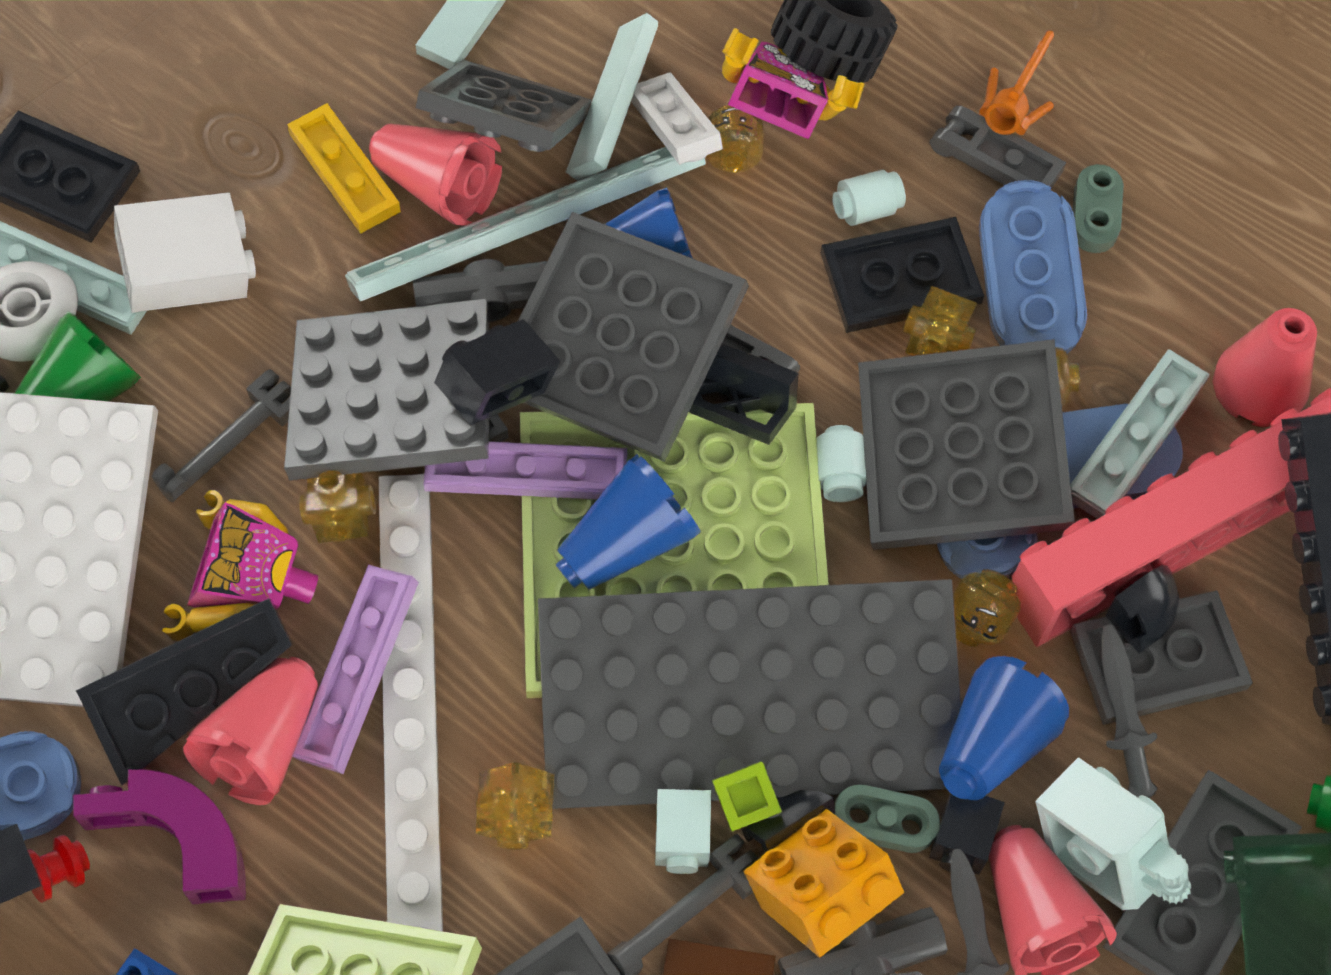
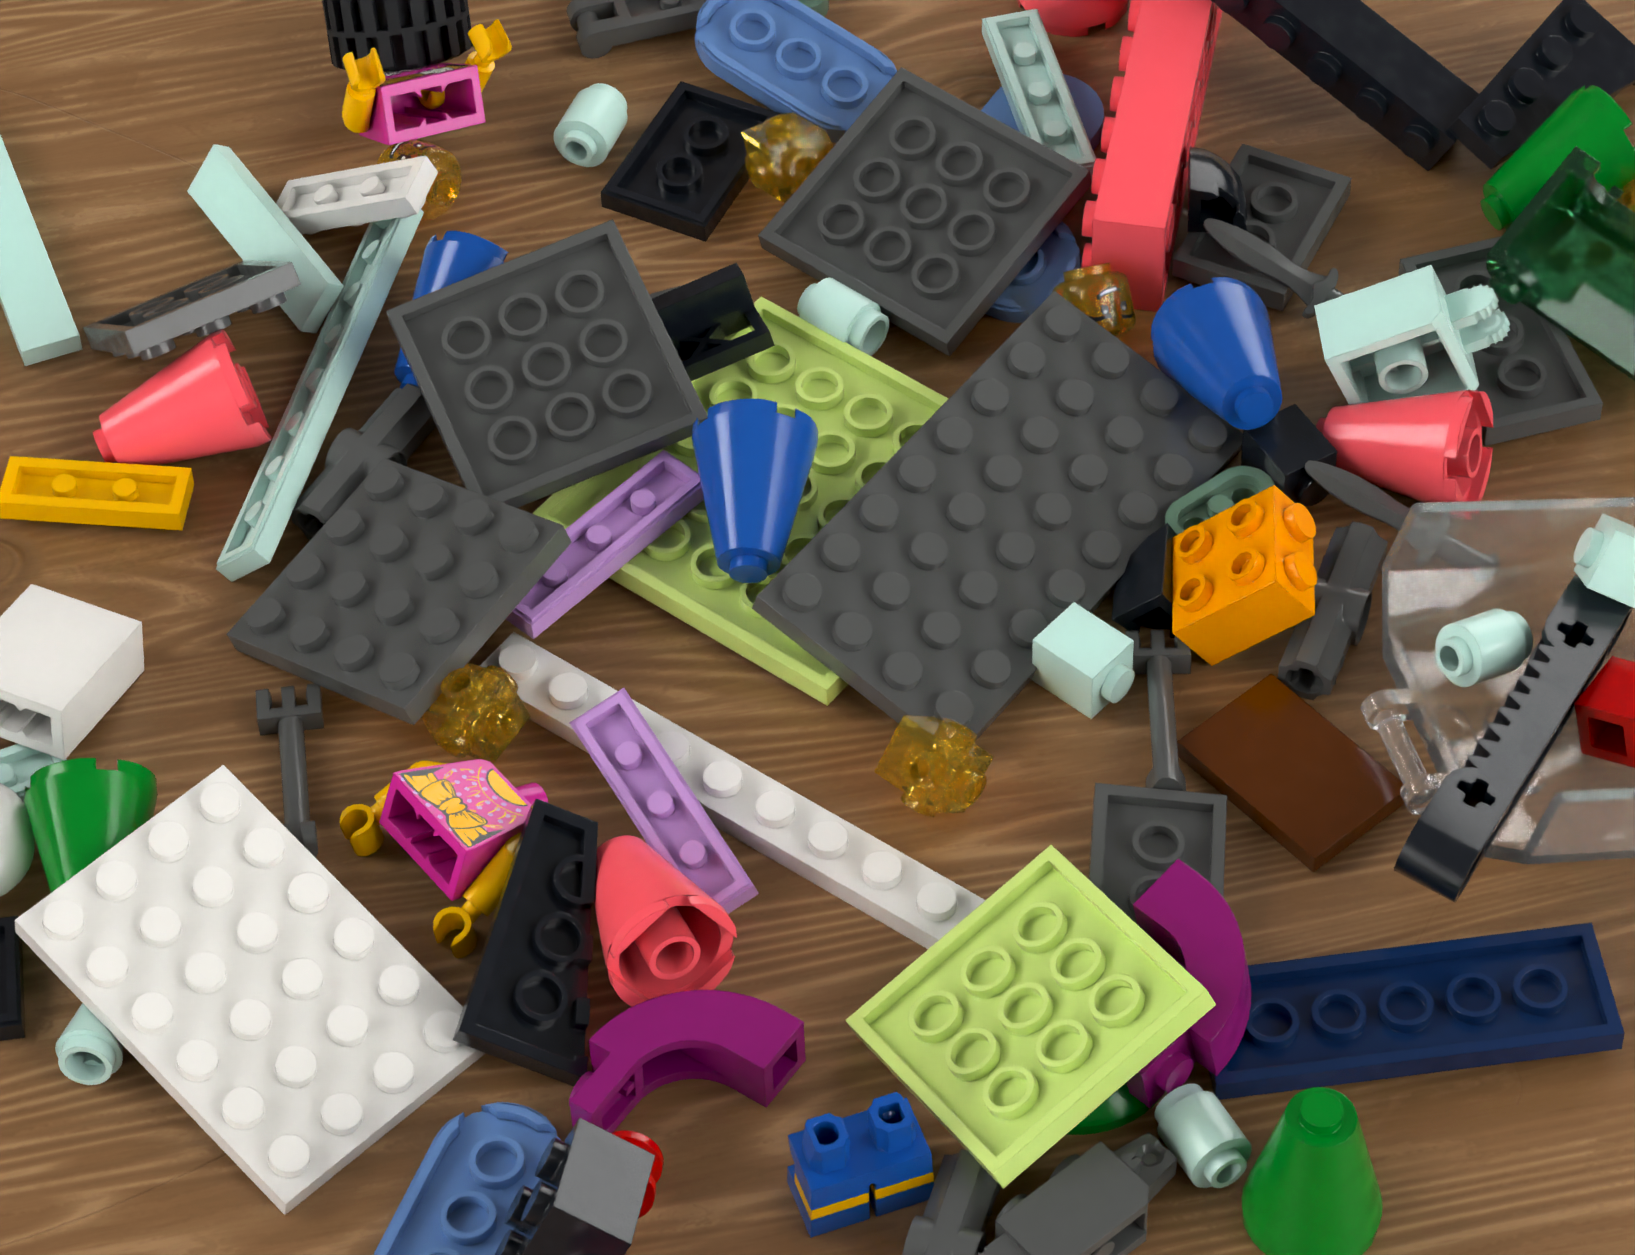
camera: 45 degrees left, 15 degrees down
(496, 371) = (494, 465): black brick -> none
(746, 796) = (1105, 580): lime plate -> none

